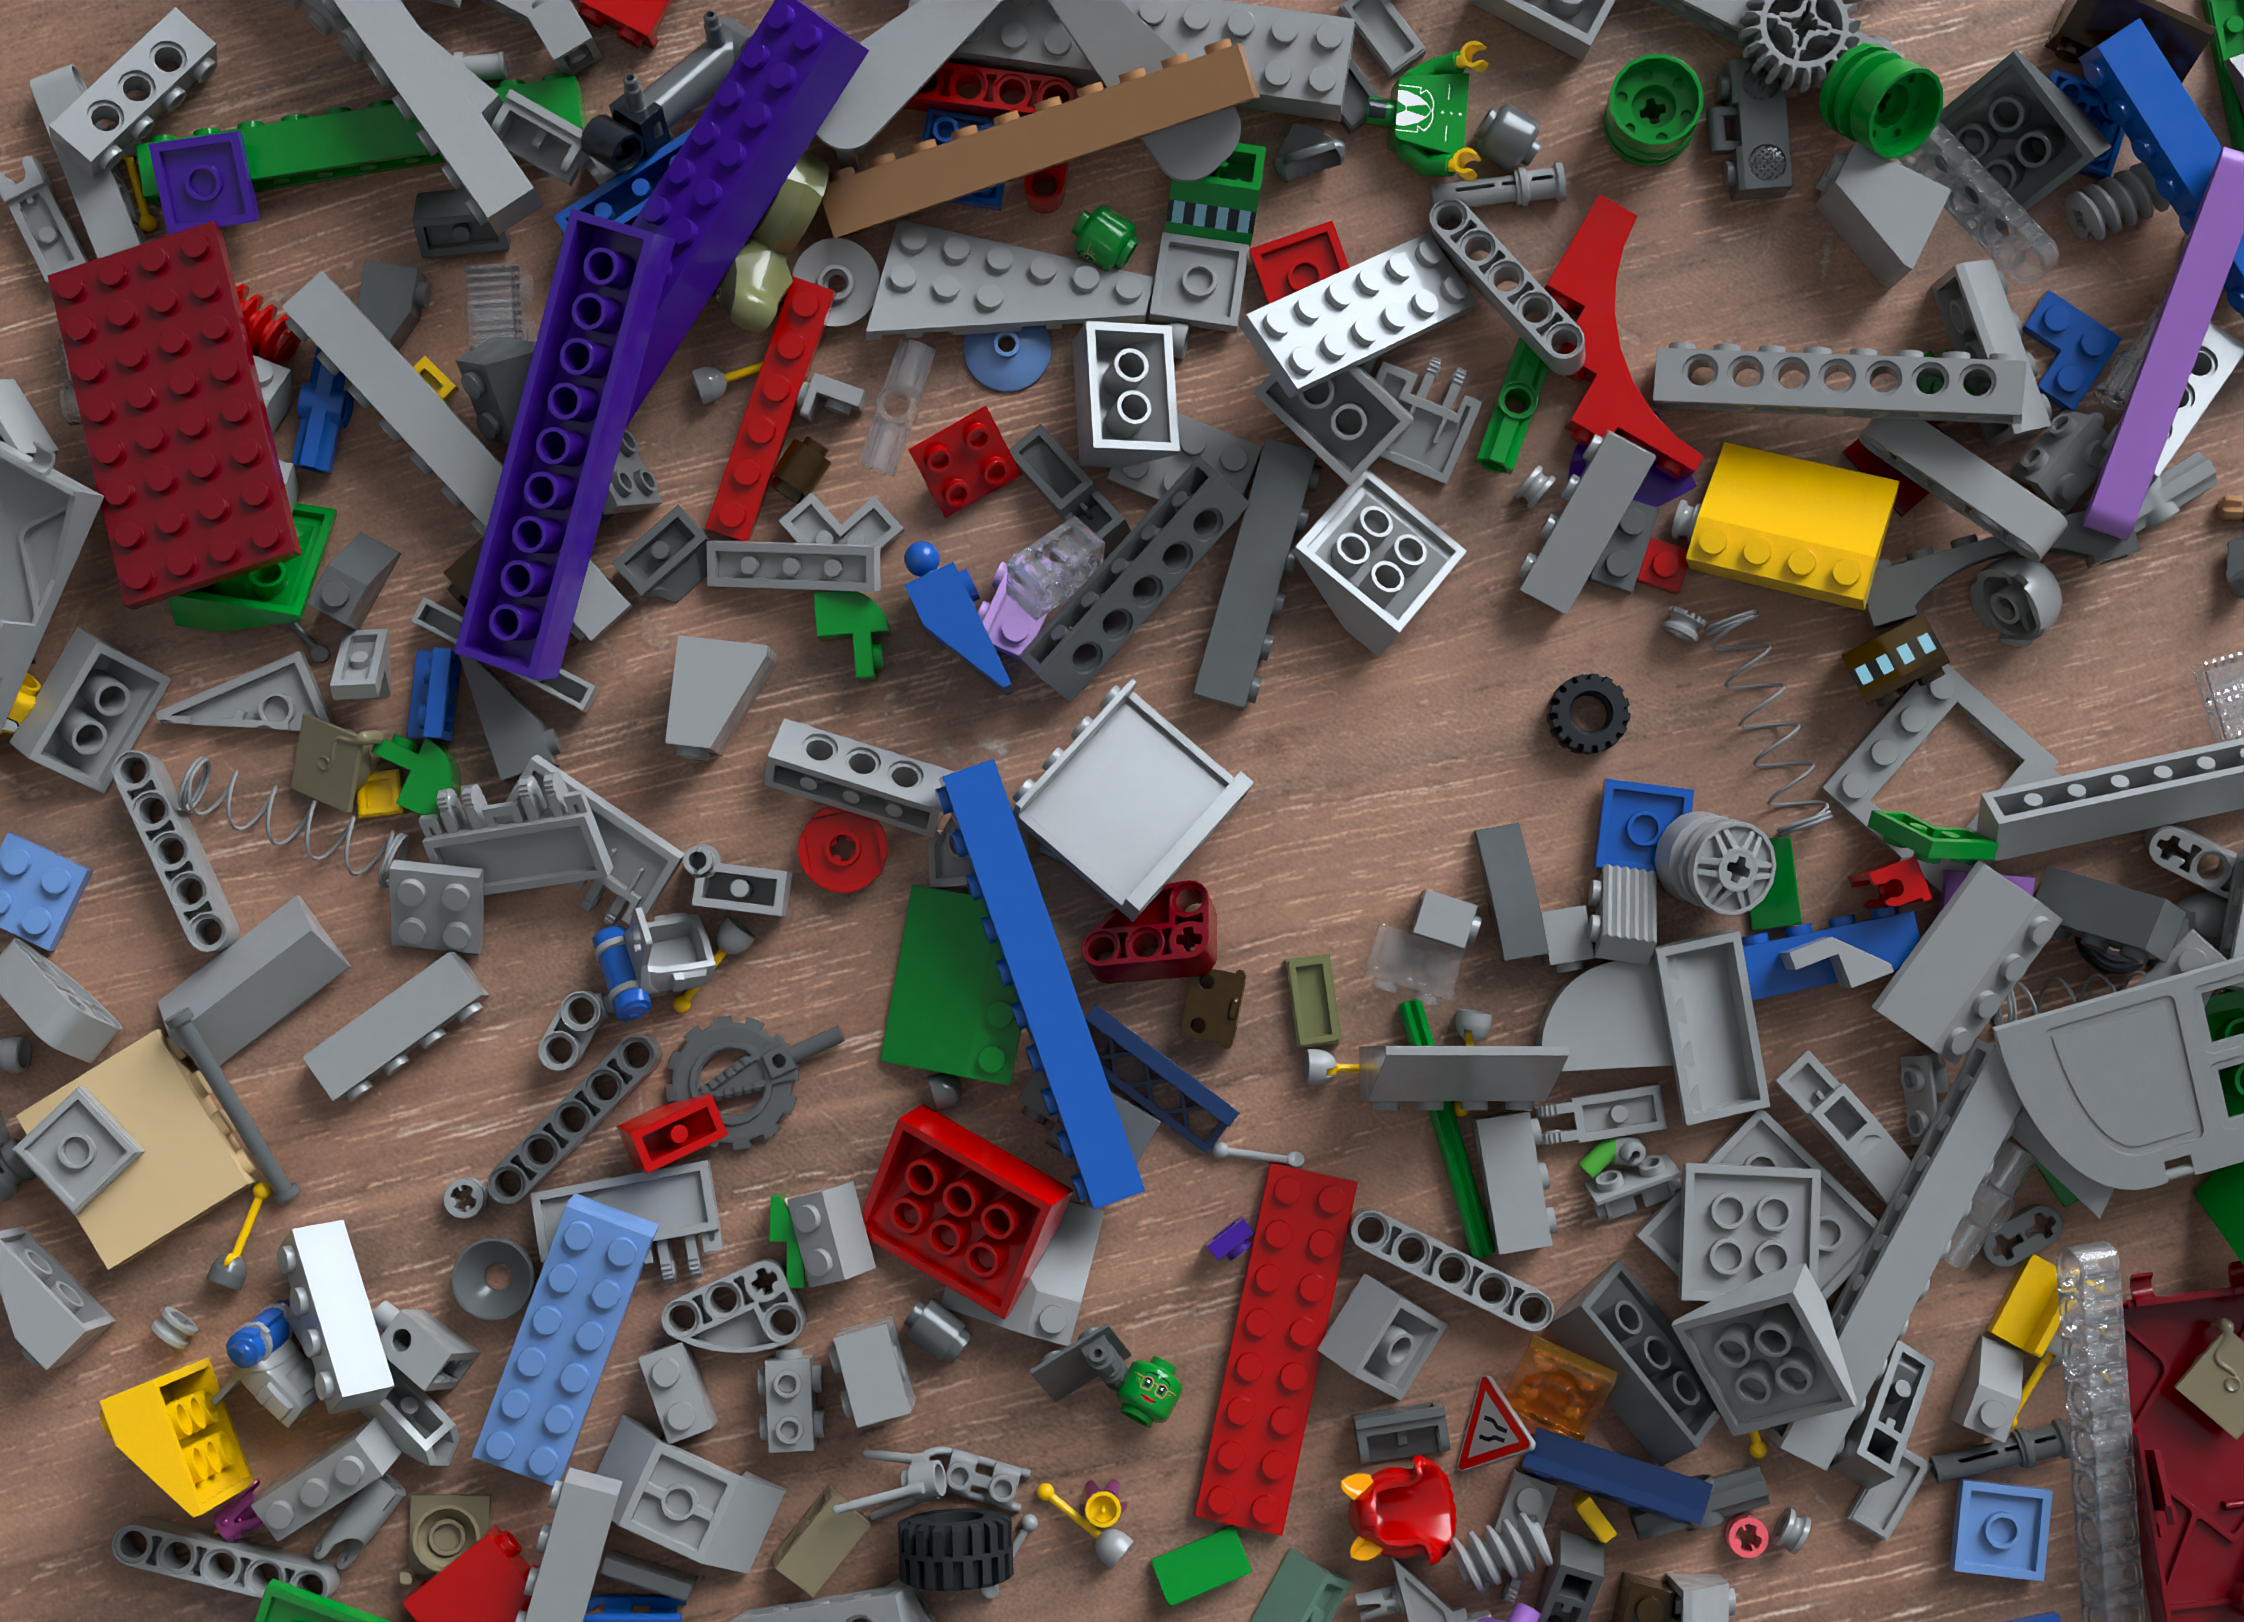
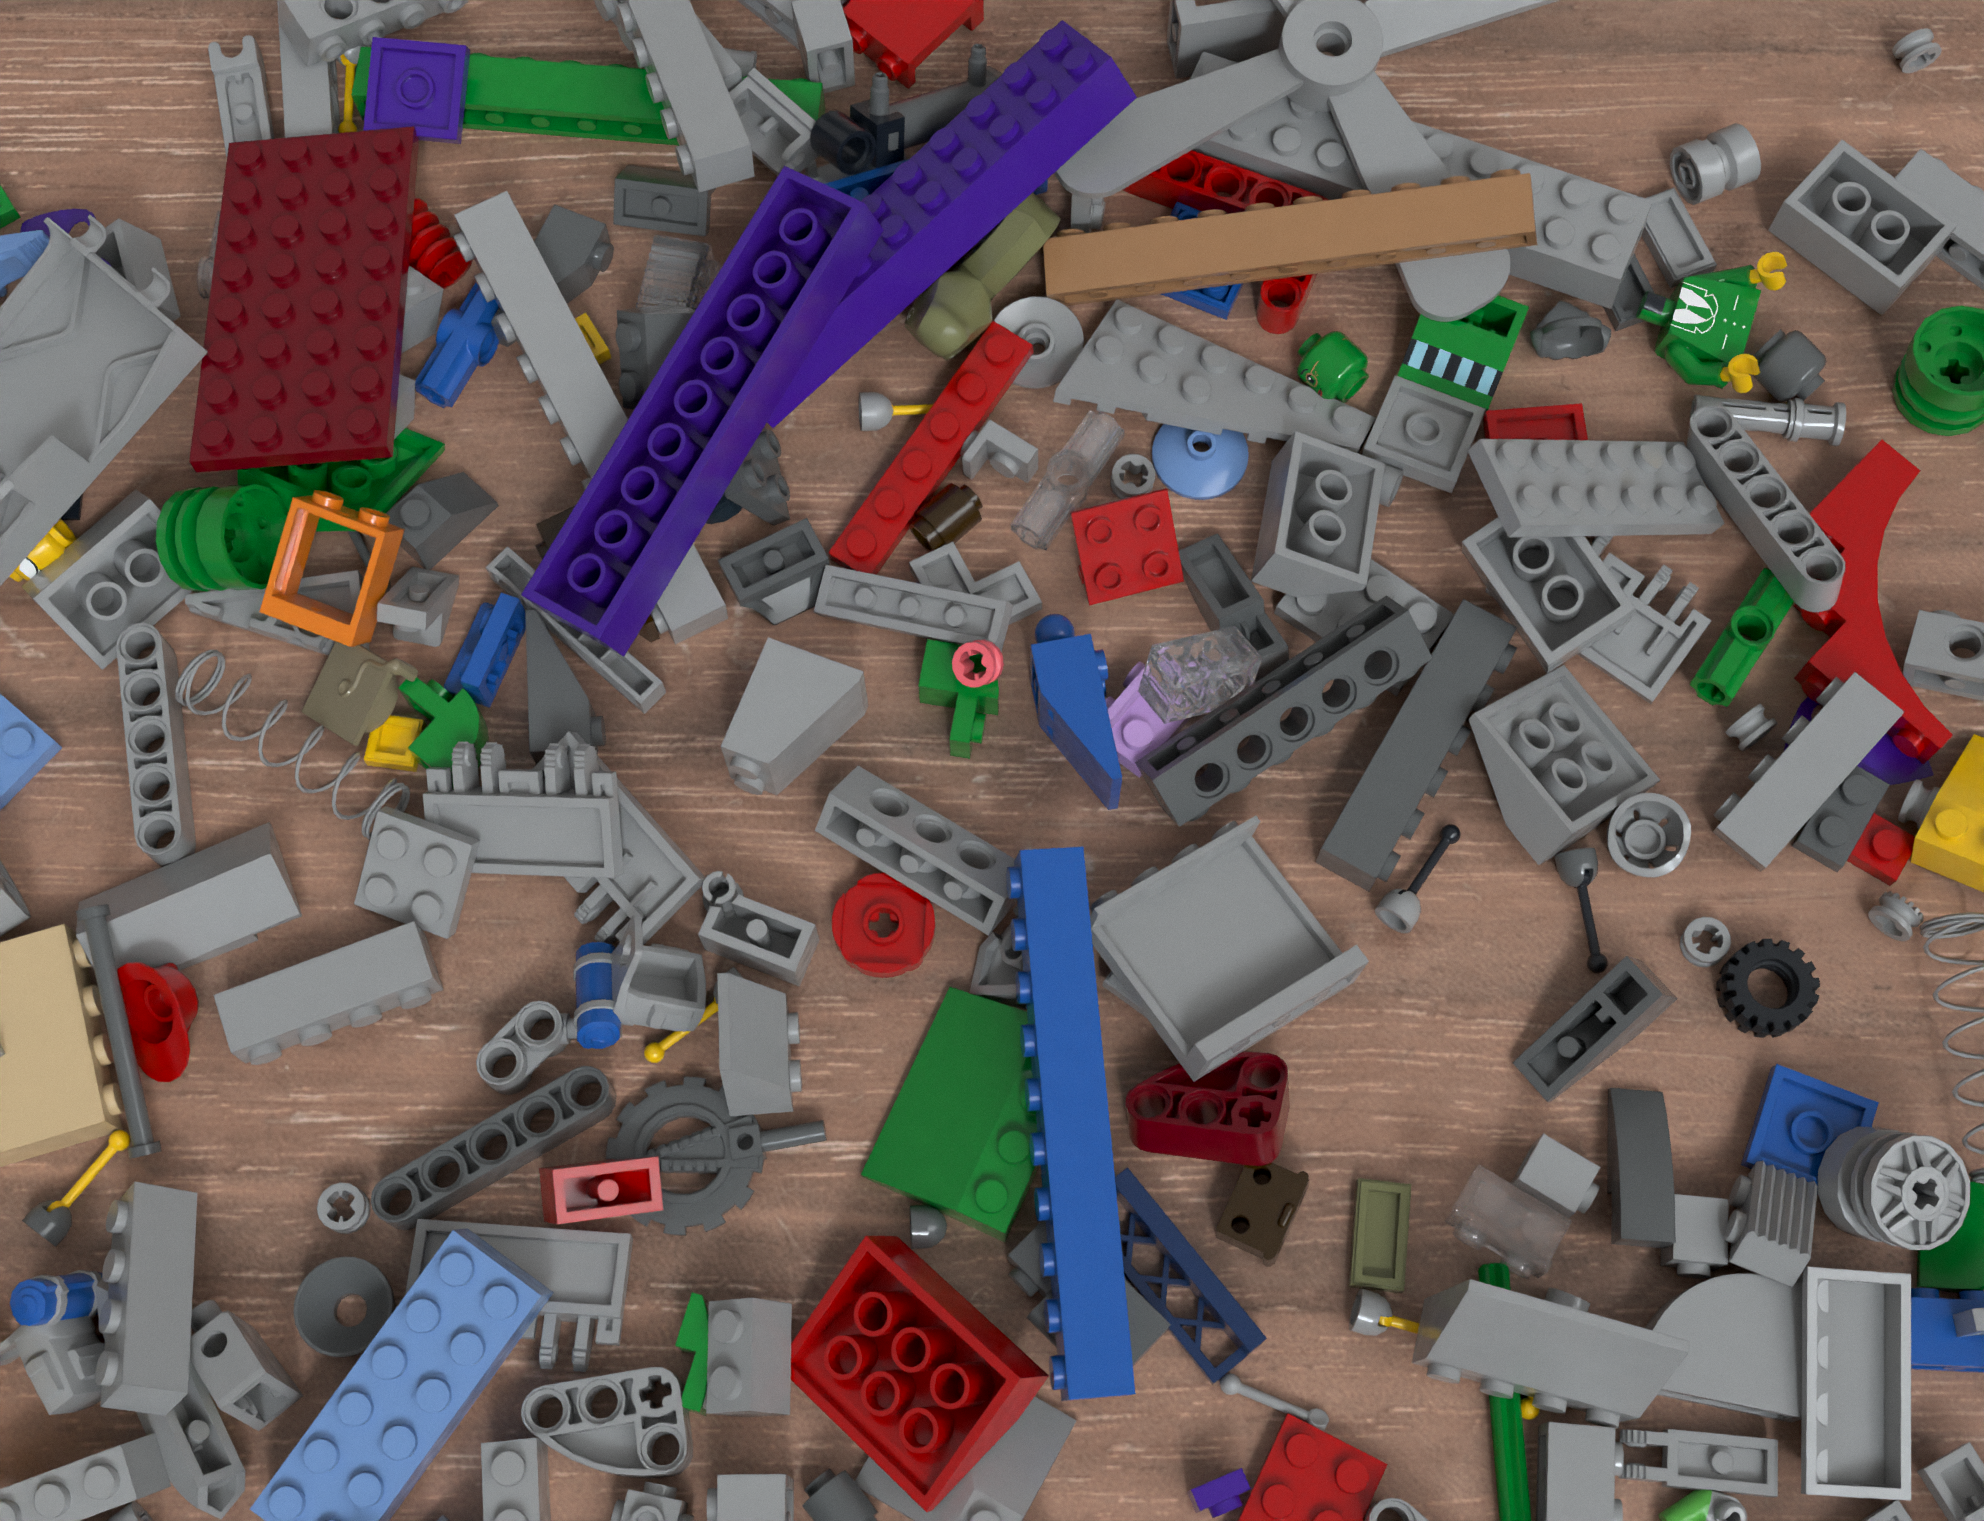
camera: 20 degrees right, 15 degrees down
(175, 658) = (220, 536): none -> green wheel
(261, 1082) = (159, 1014): none -> red piece
(271, 705) = (281, 594): none -> orange window
(766, 984) = (756, 1047): none -> light grey slope
(874, 604) = (991, 659): none -> coral bush
(953, 374) = (1135, 464): none -> light grey bush
(1272, 720) = (1401, 907): none -> hinge
(1413, 652) = (1578, 870): none -> hinge
(1453, 785) = (1595, 1027): none -> dark grey slope
(1465, 609) = (1644, 839): none -> light grey helmet
(1539, 695) = (1694, 929): none -> light grey bush

